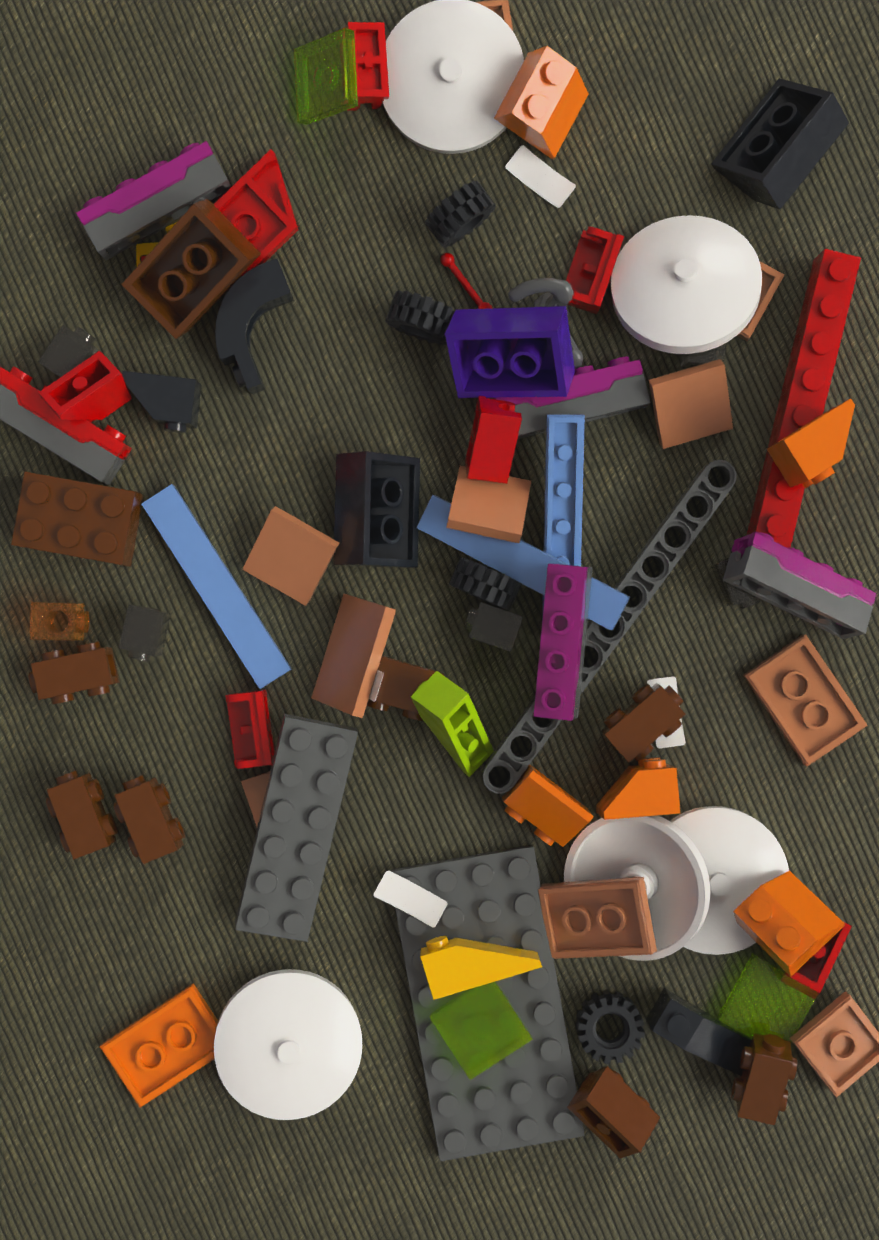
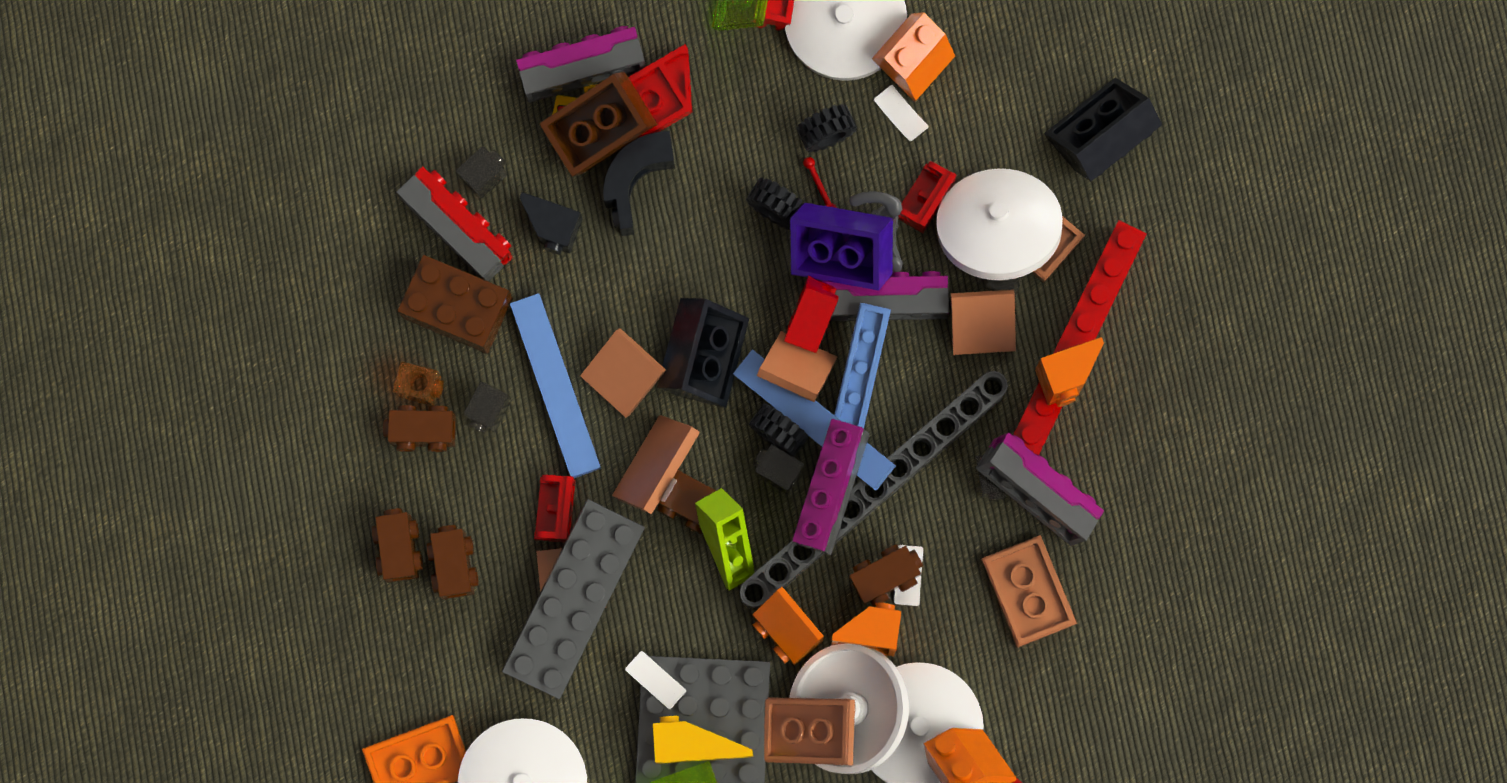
camera: 20 degrees right, 10 degrees down
(87, 391) = (491, 201): red slope -> none

